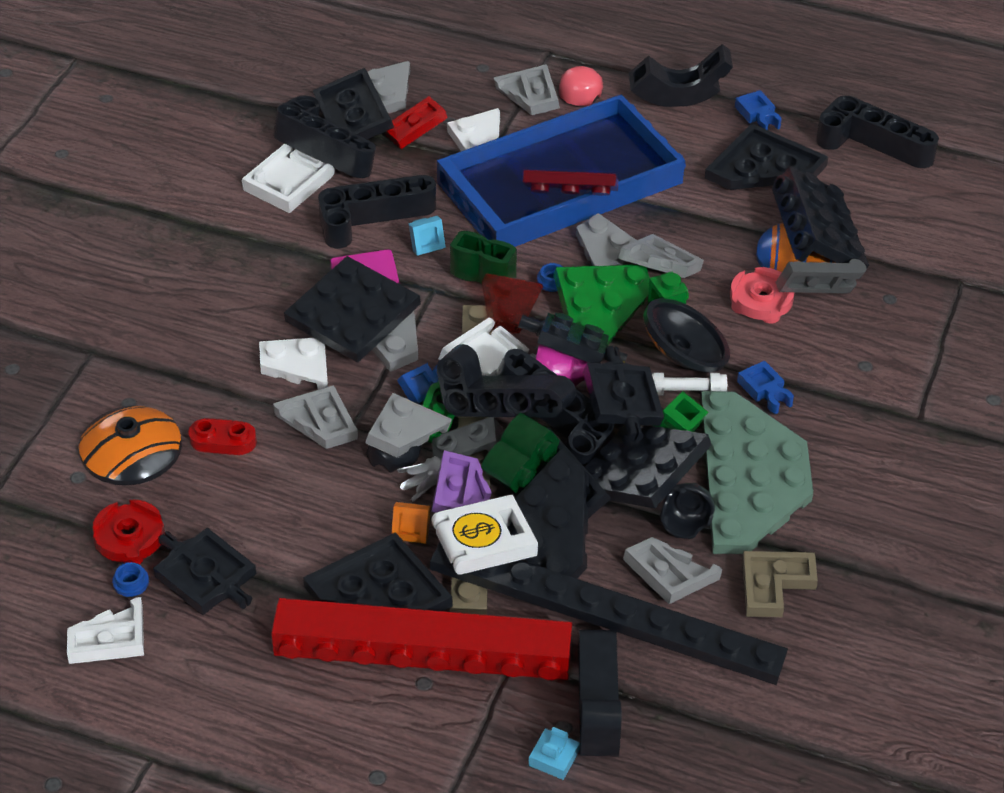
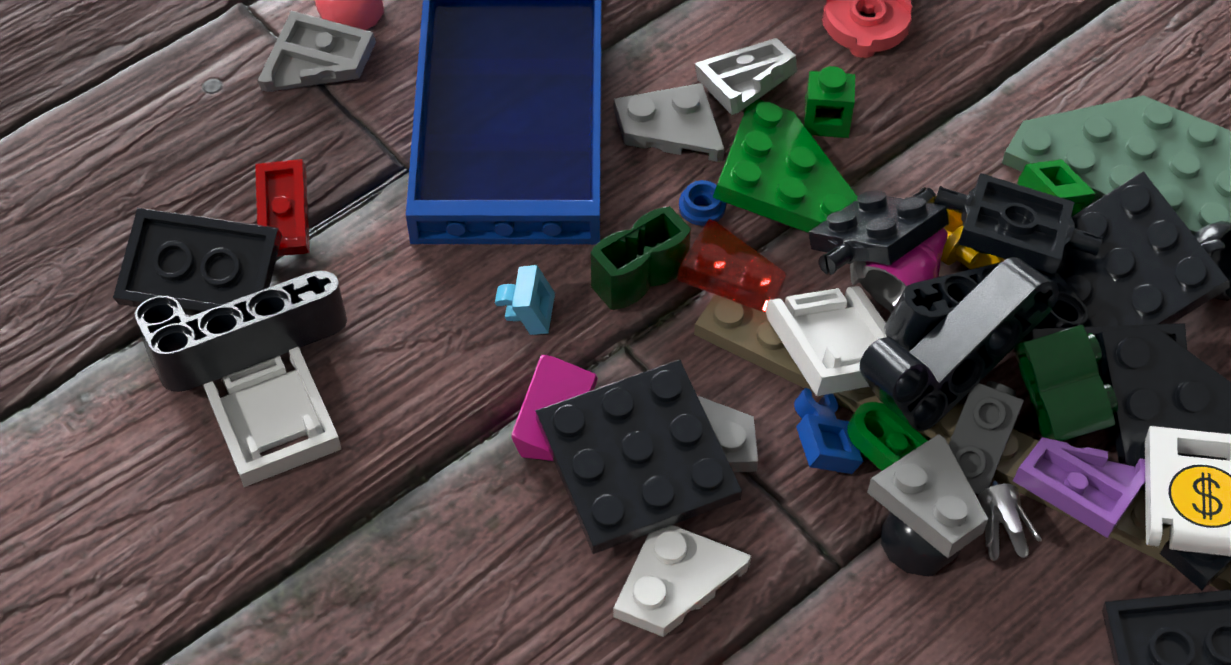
camera: 60 degrees left, 10 degrees up
(319, 417) = (819, 597): light grey wing -> none
(373, 203) = (426, 328): black beam -> none
(392, 85) = (164, 190): light grey wing -> none
(411, 522) = (1089, 574): orange tile -> none
(475, 129) = (358, 154): white wing -> none
(570, 182) = (579, 89): dark red plate -> none
(686, 336) = (920, 119): black dish -> none
(715, 382) = (992, 137): white bar -> none
(765, 383) = (1026, 89): blue plate -> none

